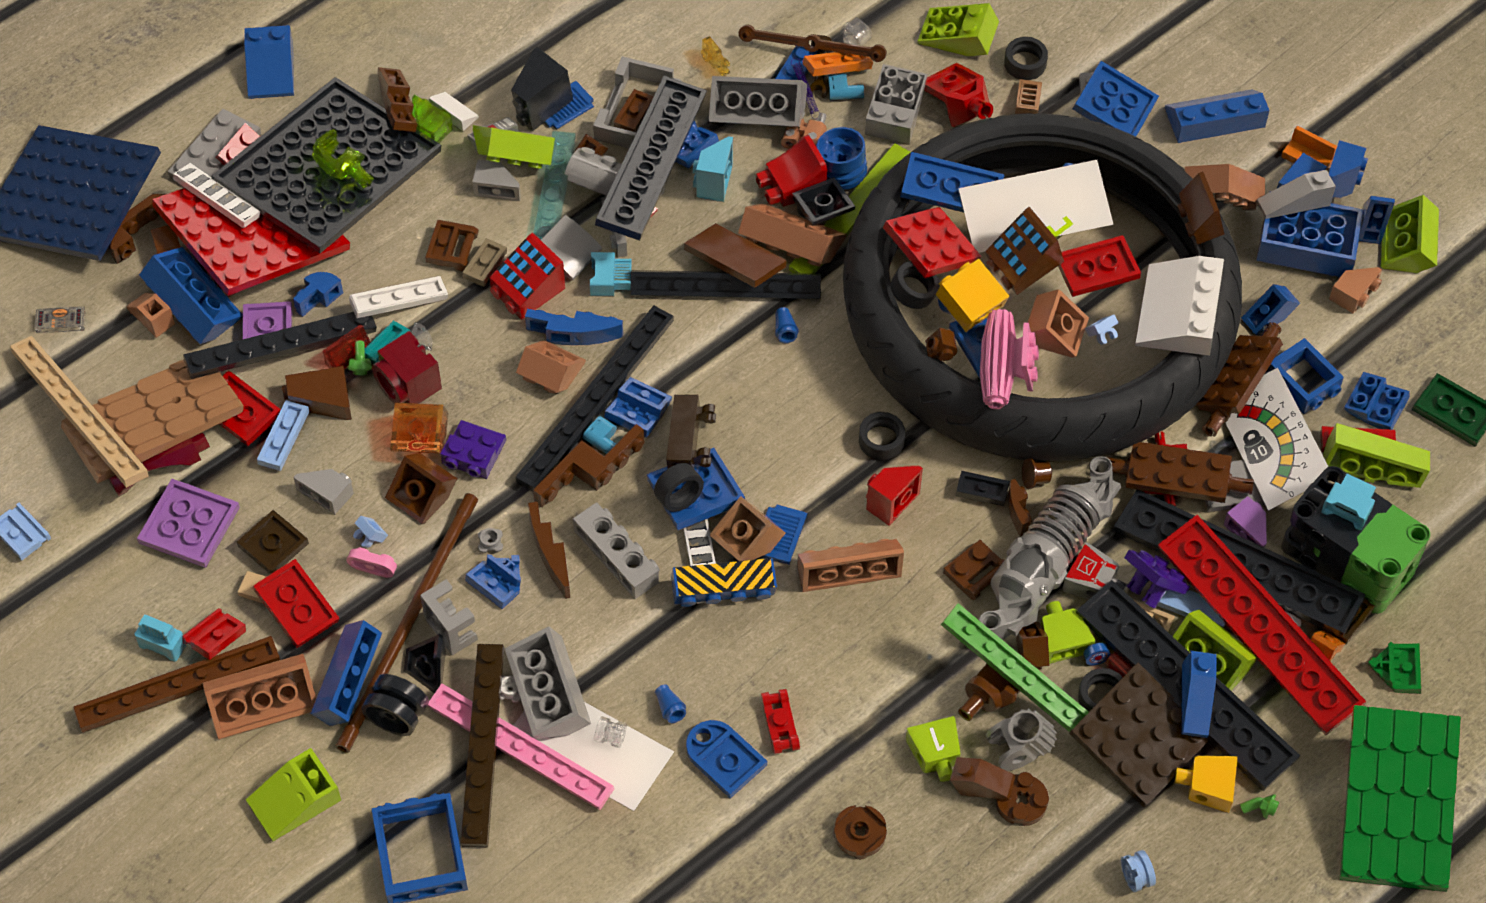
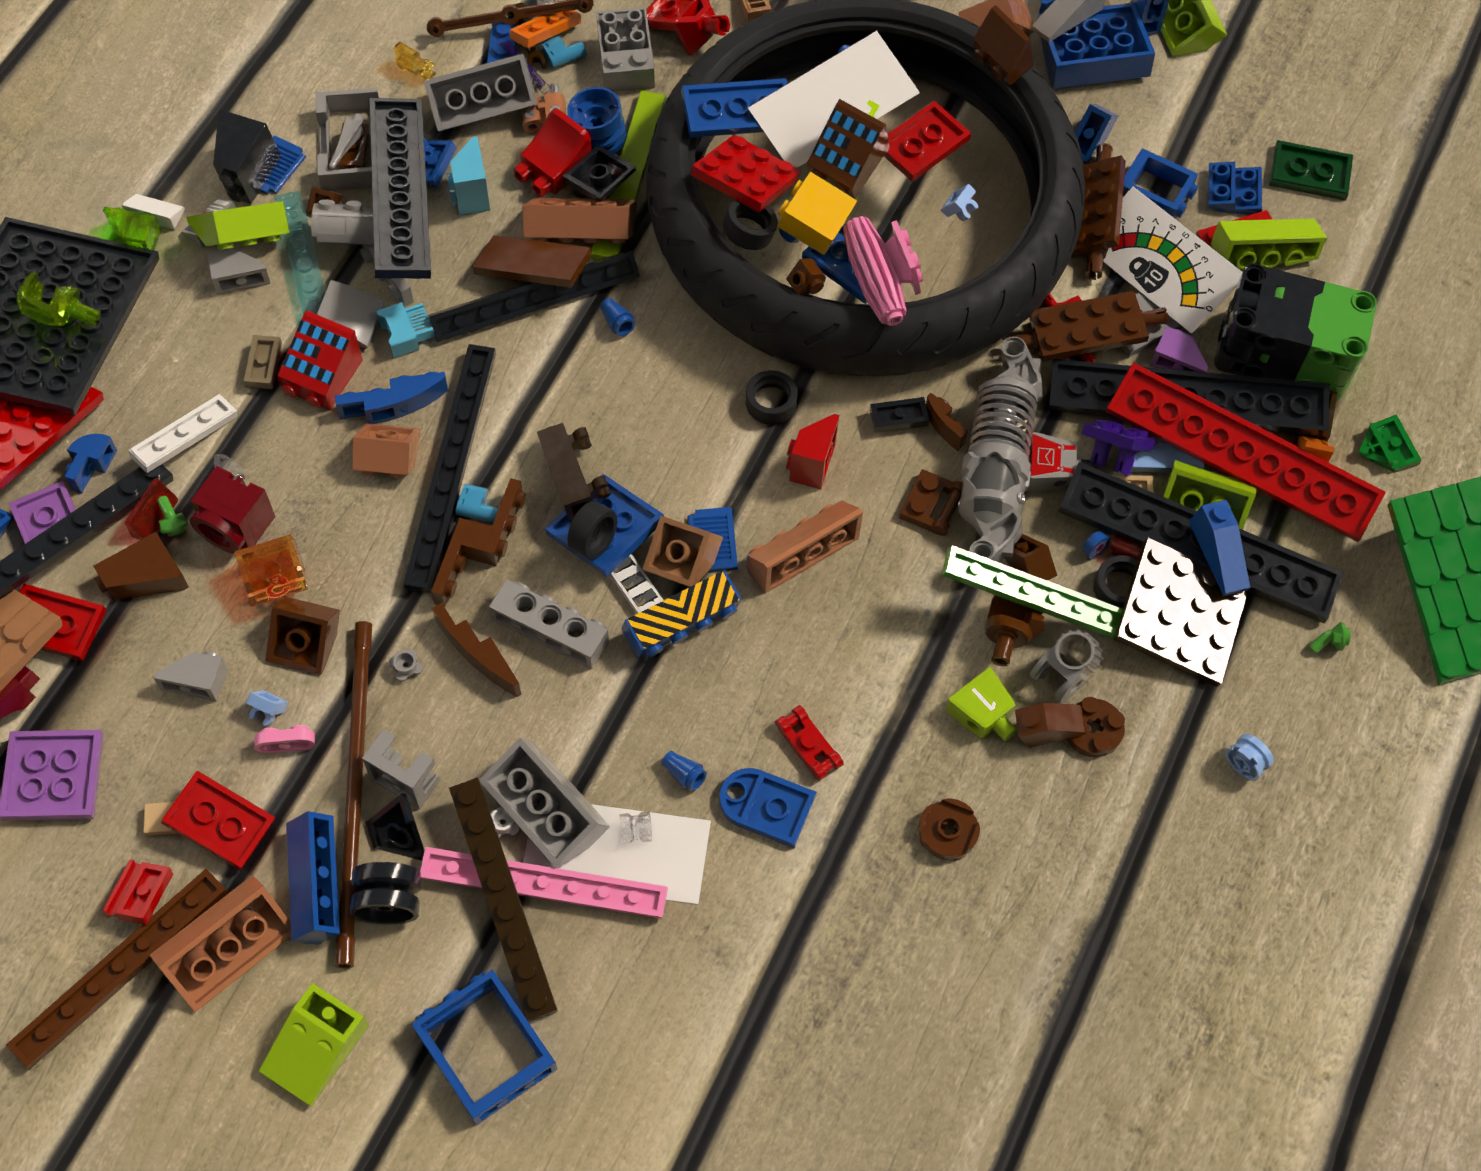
camera: 25 degrees left, 5 degrees up
(160, 637) = (76, 922): medium azure piece -> none
(272, 542) = (160, 760): dark brown plate -> none
(283, 435) = (118, 634): light blue plate -> none
(388, 335) = (190, 483): teal tile -> none
(396, 99) = (86, 220): reddish brown slope -> none
(444, 243) = (208, 356): reddish brown plate -> none
(472, 449) = (341, 571): dark purple plate -> none
(497, 579) = (432, 704): blue slope -> none
(636, 99) = (351, 132): none -> light grey piece
(638, 405) = (499, 458): blue slope -> none
(1035, 473) = (945, 379): reddish brown piece -> none
(1057, 323) = (914, 210): nougat slope -> none
(1066, 633) = (1057, 530): lime torso -> none
(1180, 305) = (1029, 151): white slope -> none
(1210, 781) = (1272, 633): yellow torso -> none
(1350, 500) = (1289, 292): medium azure piece -> none
(1354, 288) = (1159, 83): nougat slope -> none

